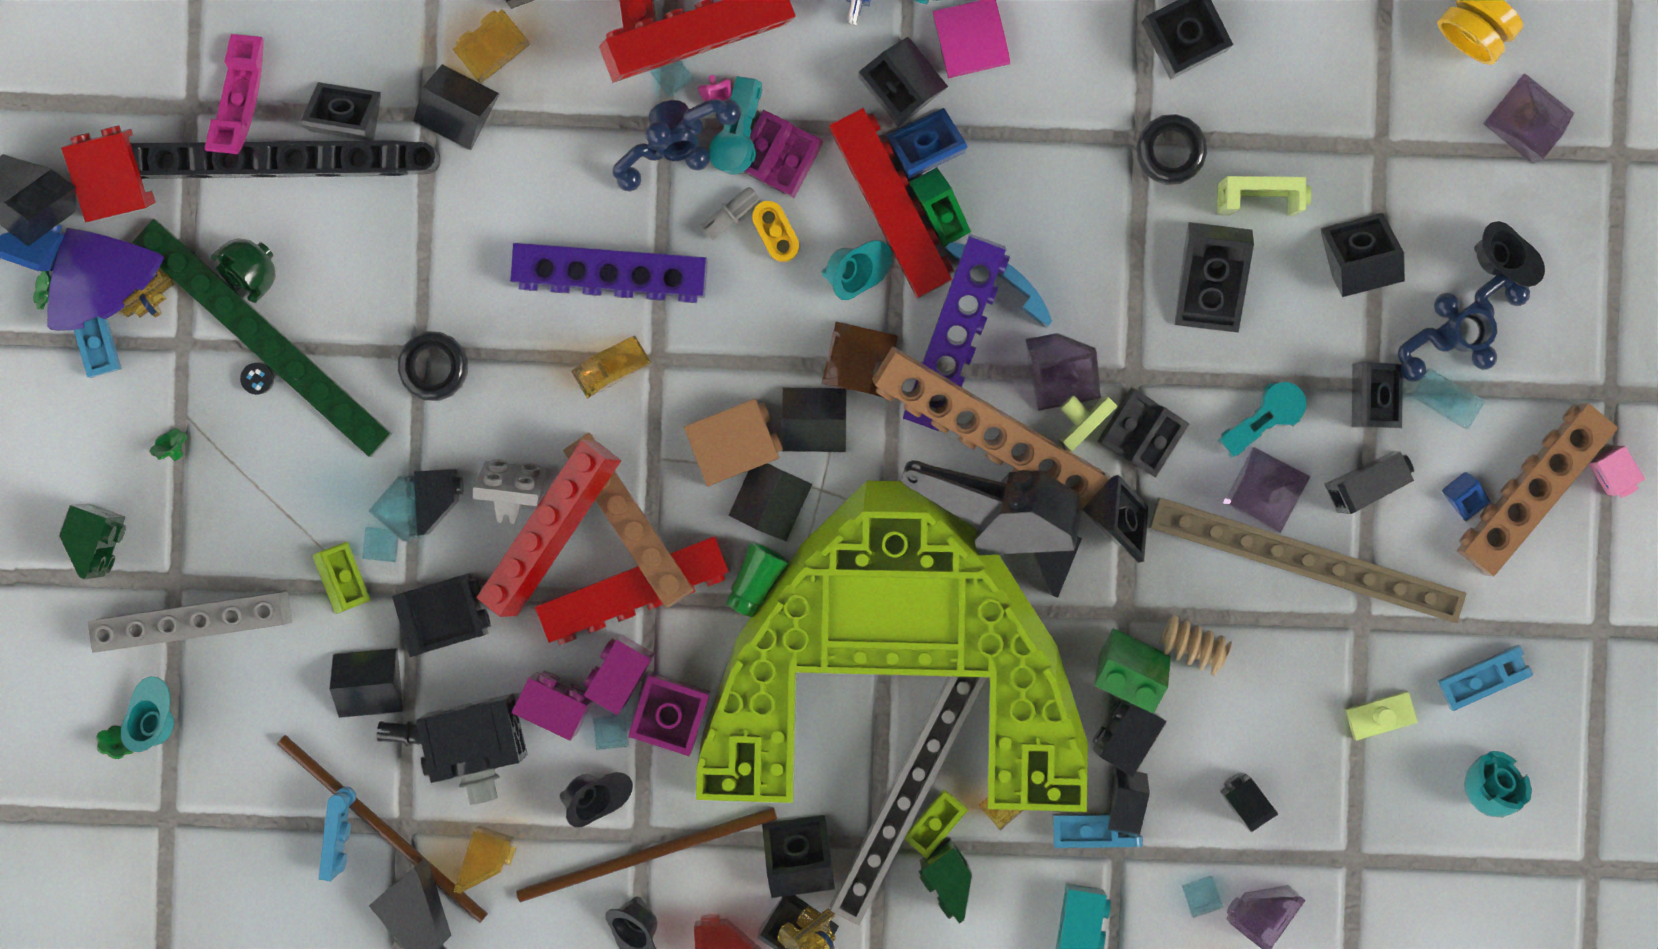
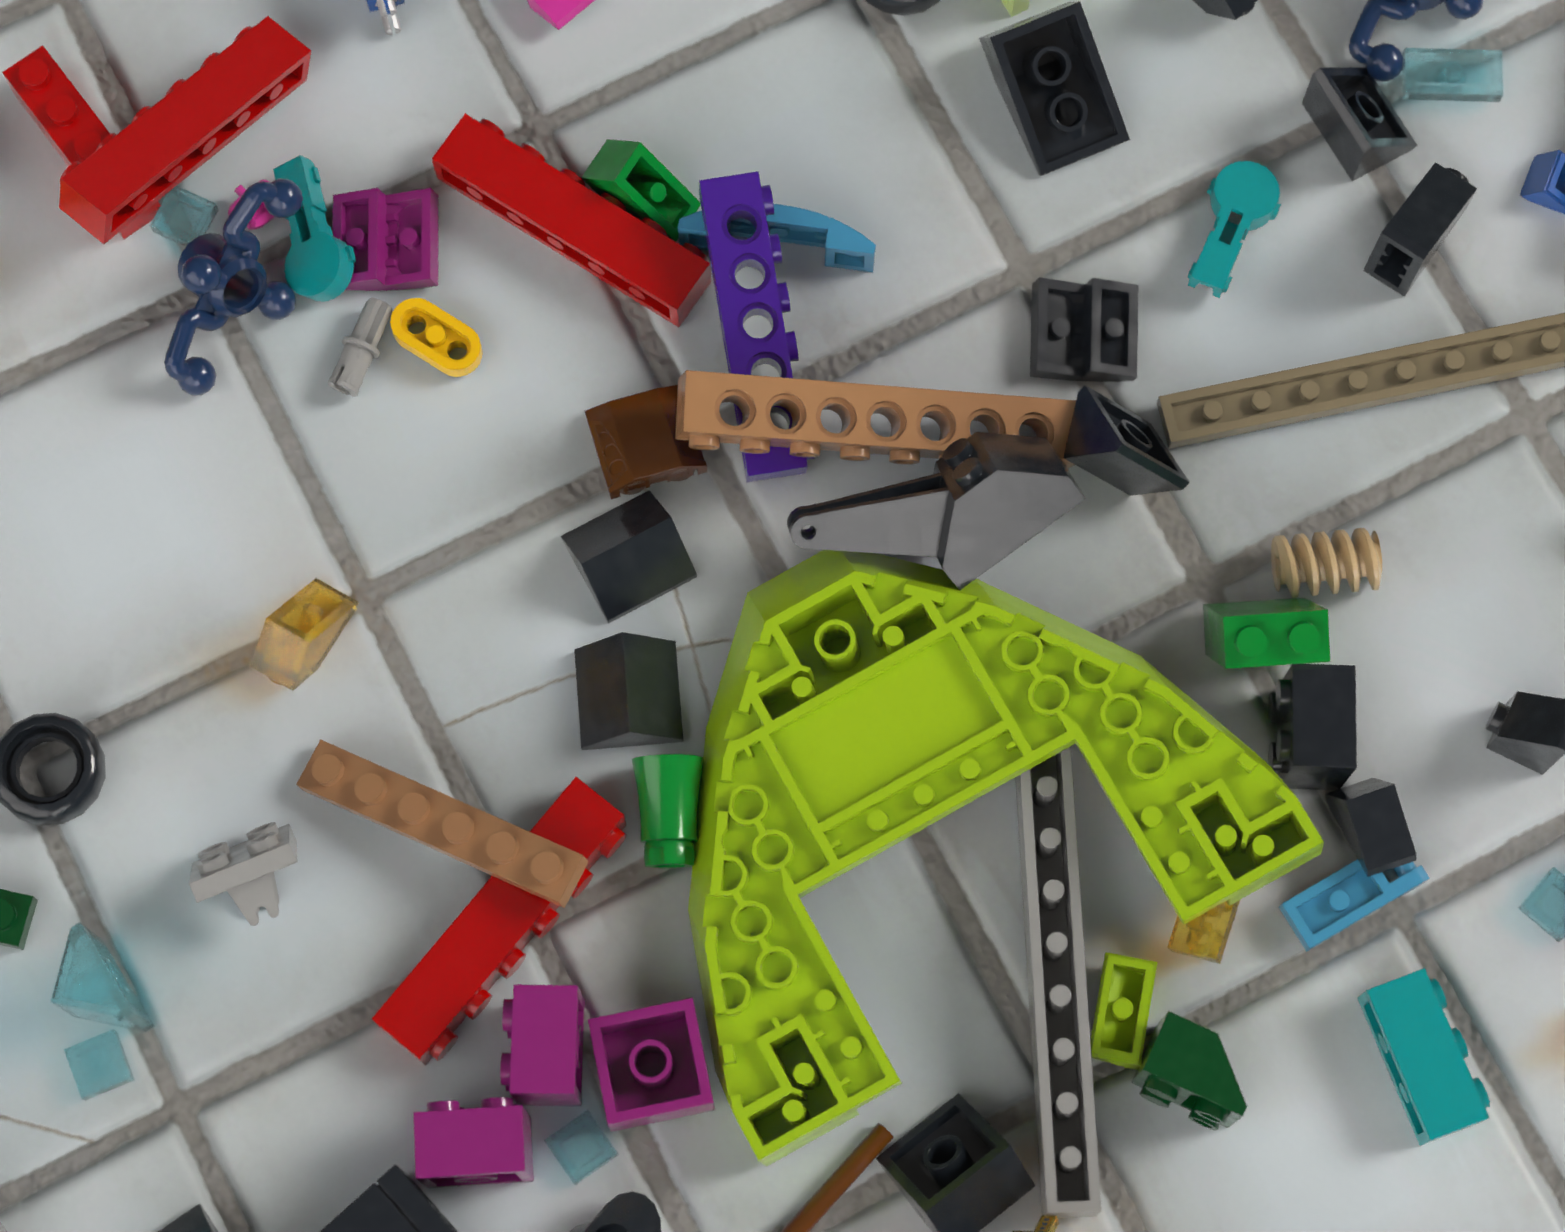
camera: 30 degrees left, 15 degrees down
(341, 577) = (64, 1146): lime slope -> none
(435, 496) = (145, 947): black slope -> none
(441, 614) = (241, 1113): black panel -> none
(529, 256) = (205, 502): dark purple brick -> none
(548, 528) = (332, 894): red brick -> none
(733, 441) = (530, 639): medium nougat panel -> none
(858, 269) = (575, 321): teal piece -> none
(902, 80) = (496, 64): black slope -> none
(927, 143) = (581, 120): blue slope -> none
(1055, 567) = (1067, 557): black slope -> none
(1062, 369) = (928, 306): clear purple slope -> none
(1084, 420) = (997, 351): yellowish green tile -> none
(1266, 489) = (1293, 316): clear purple slope -> none

